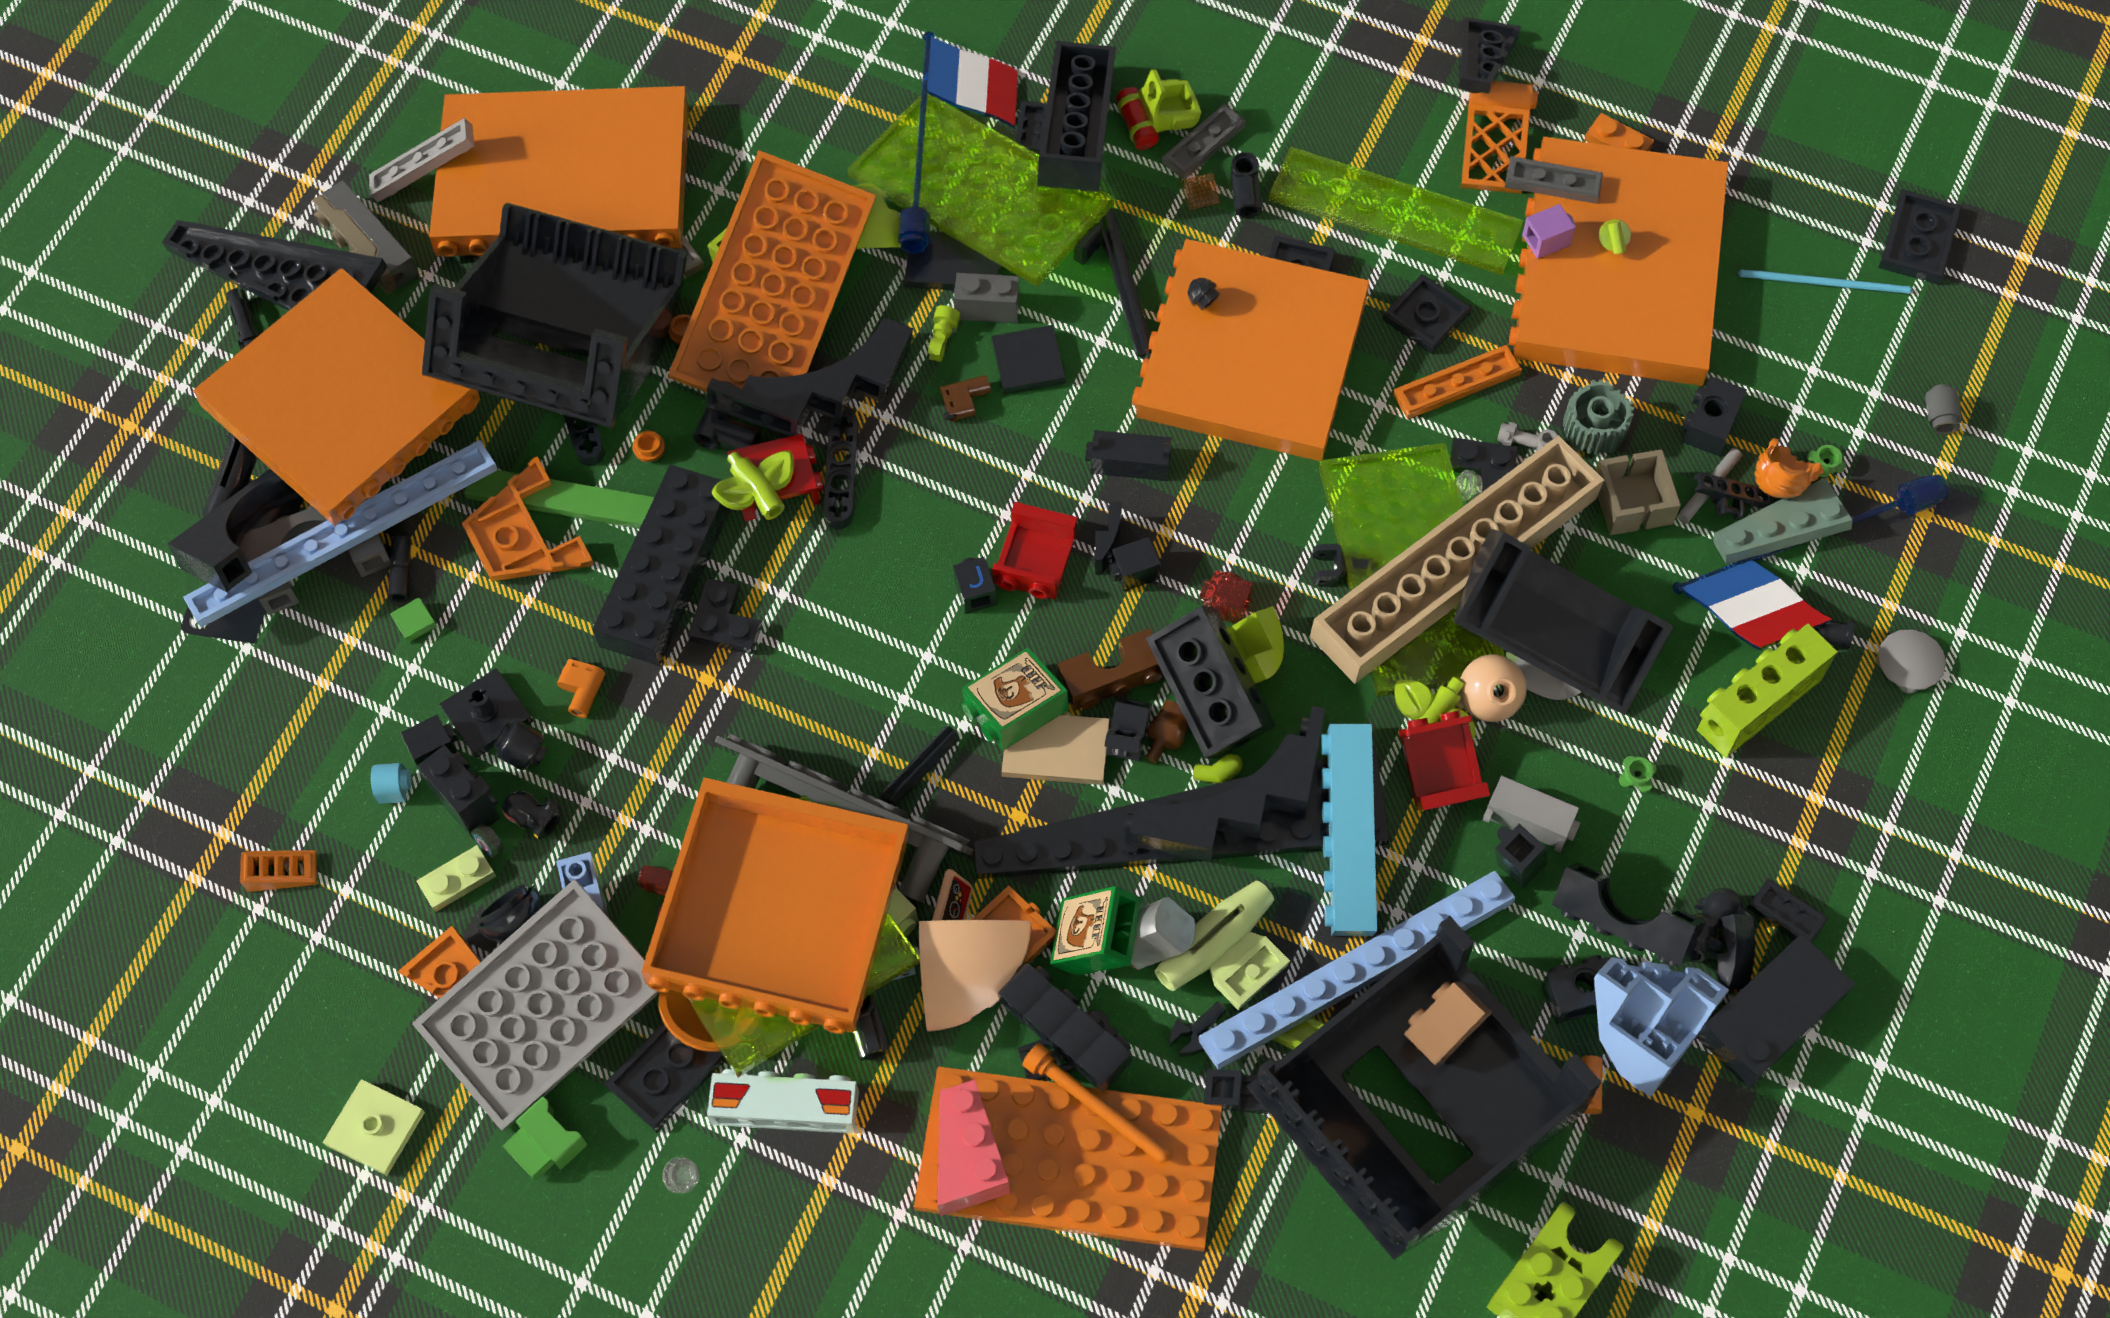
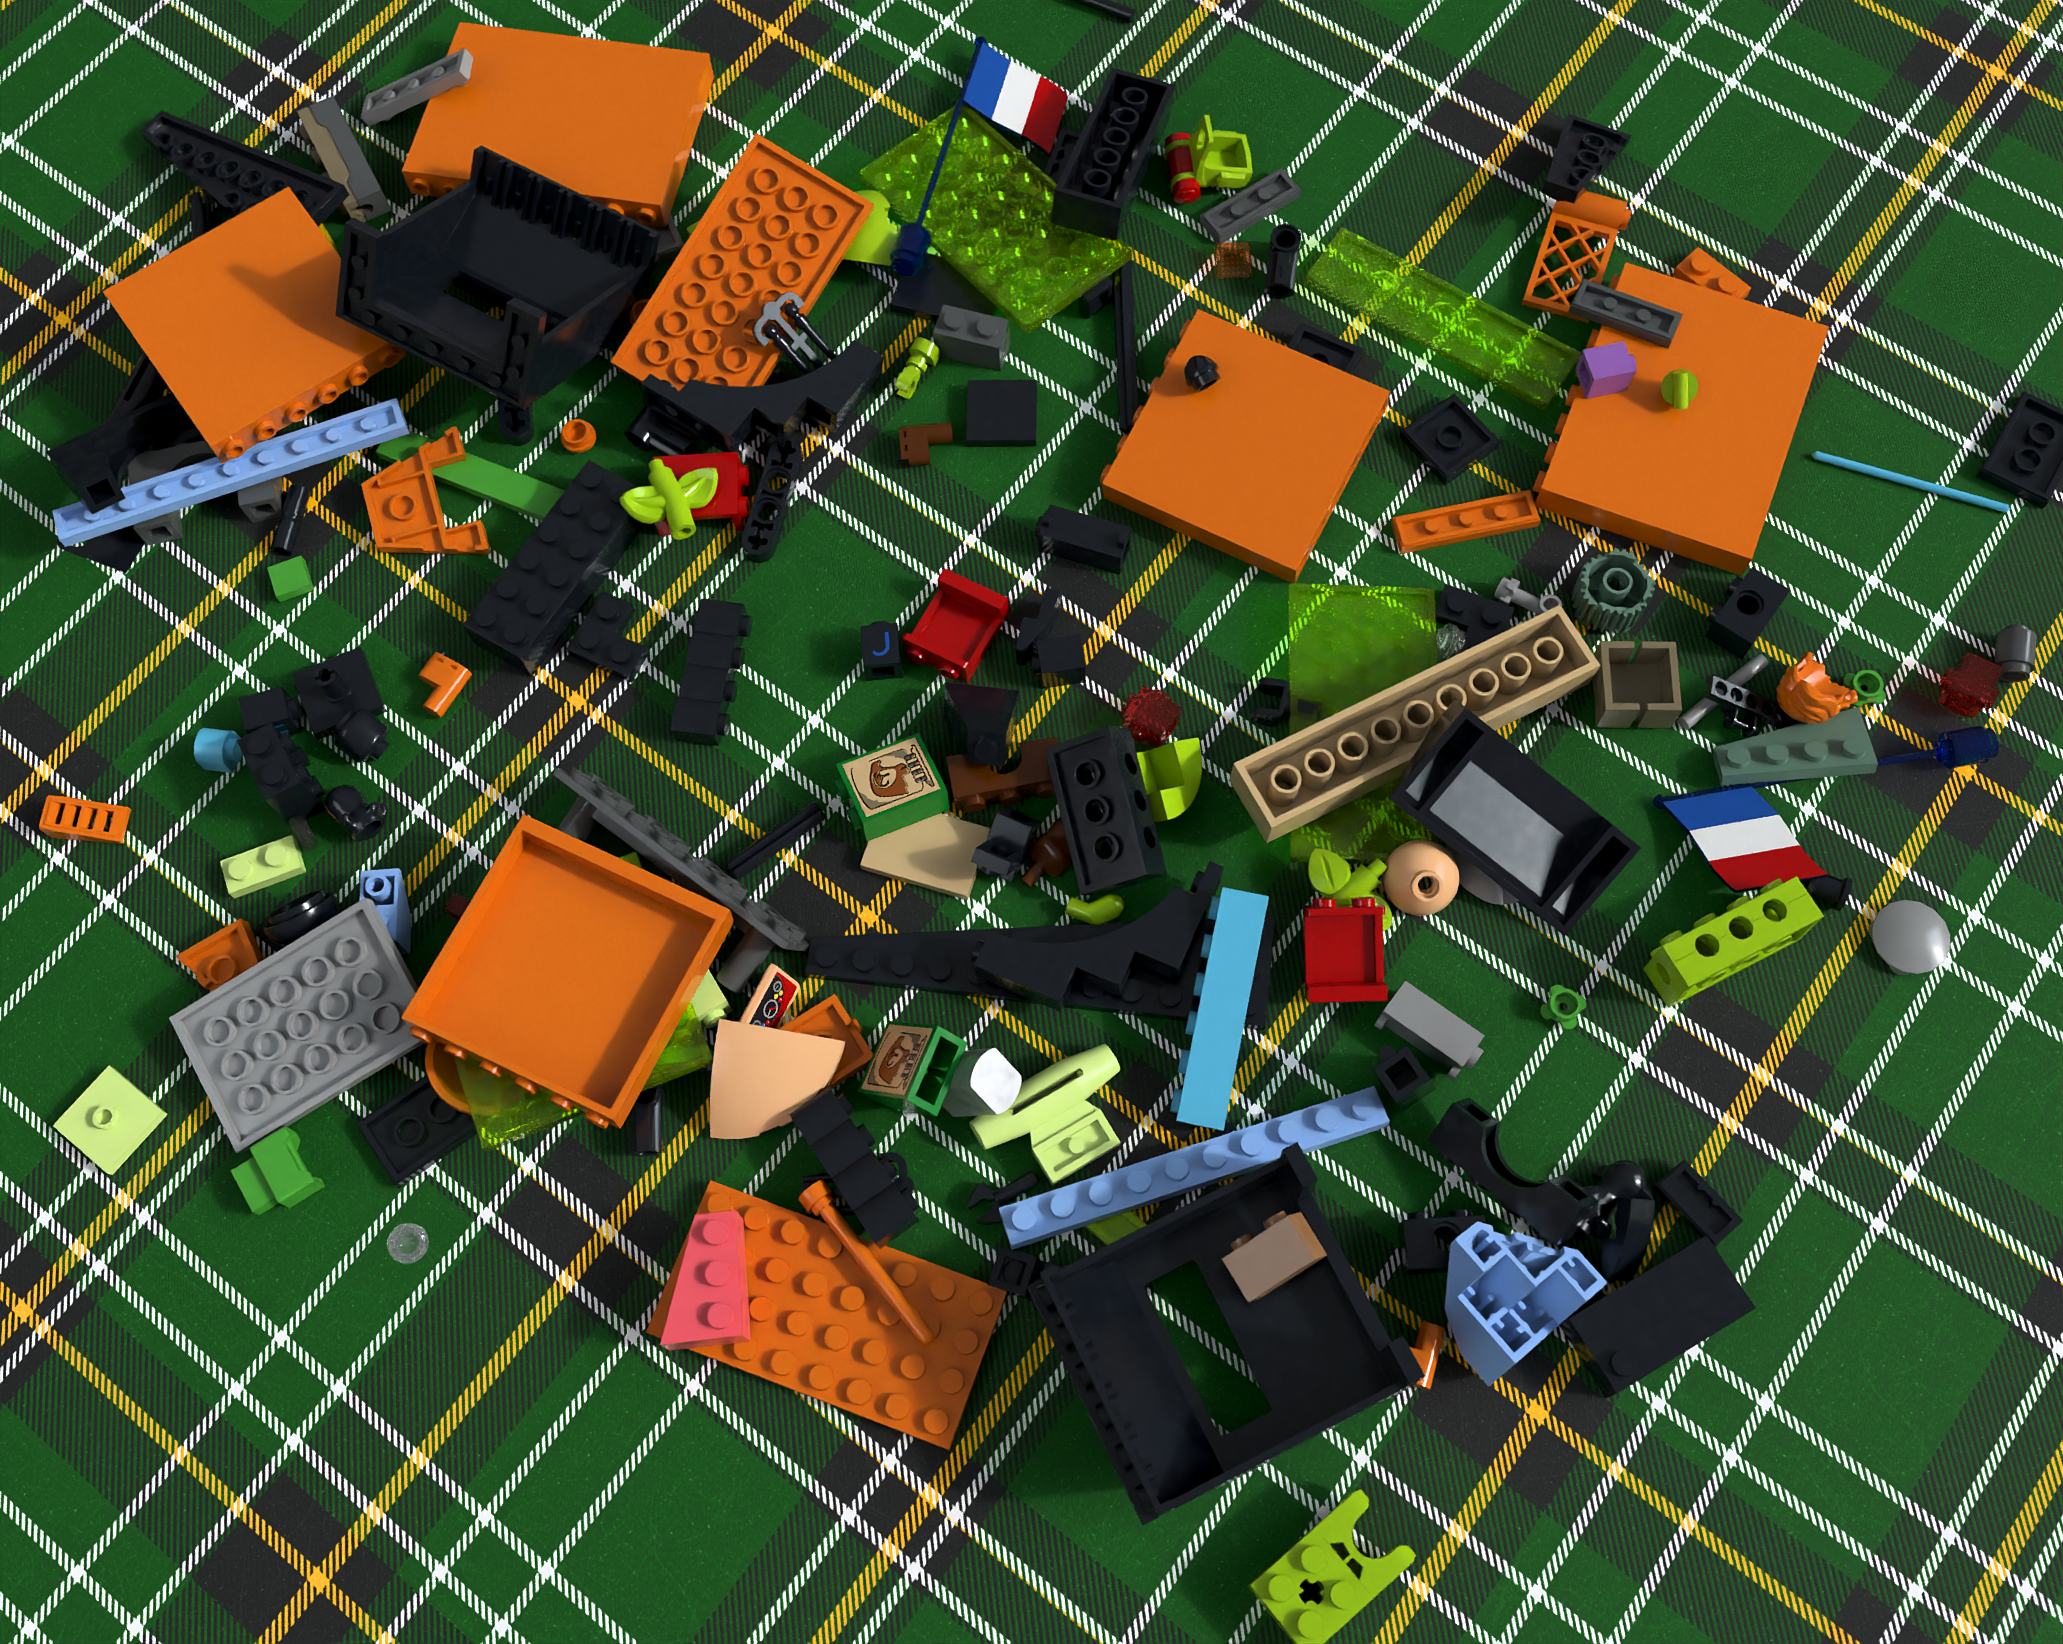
camera: 15 degrees right, 5 degrees up
(783, 1102) = (537, 1185): light aqua brick -> none
(806, 304) = (771, 311): none -> black piece
(825, 631) = (710, 672): none -> black brick
(1079, 627) = (981, 721): none -> black slope
(1913, 442) = (1970, 685): none -> clear red brick

